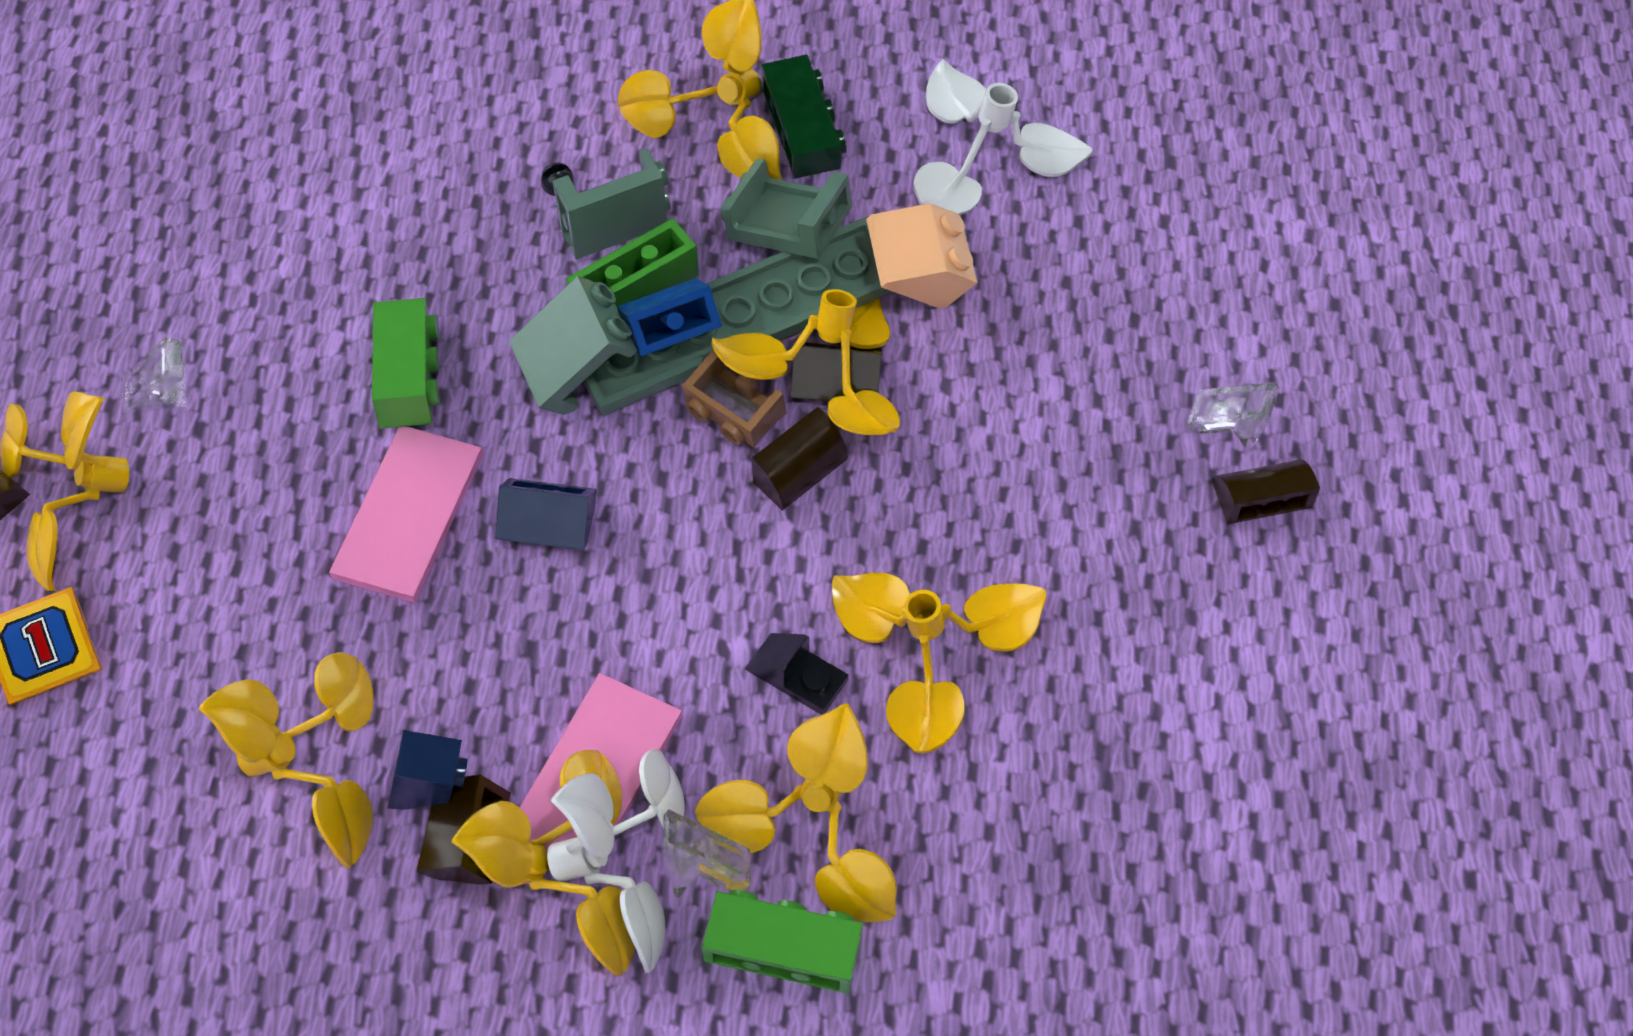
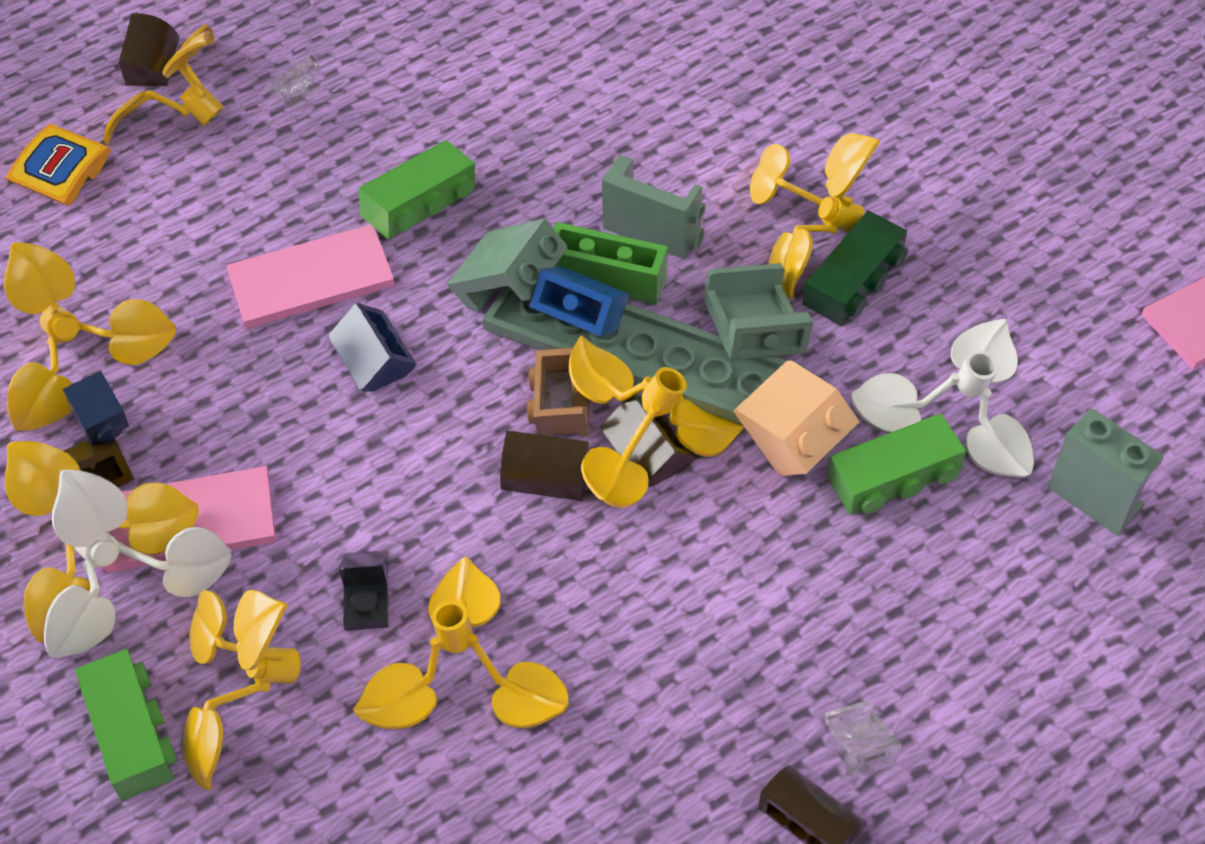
camera: 55 degrees right, 5 degrees down
(552, 172) = (658, 171): black hinge -> none
(698, 851) = (155, 620): clear slope -> none
(1014, 224) = (896, 465): none -> bright green brick
(1151, 97) = (1103, 471): none -> sand green panel

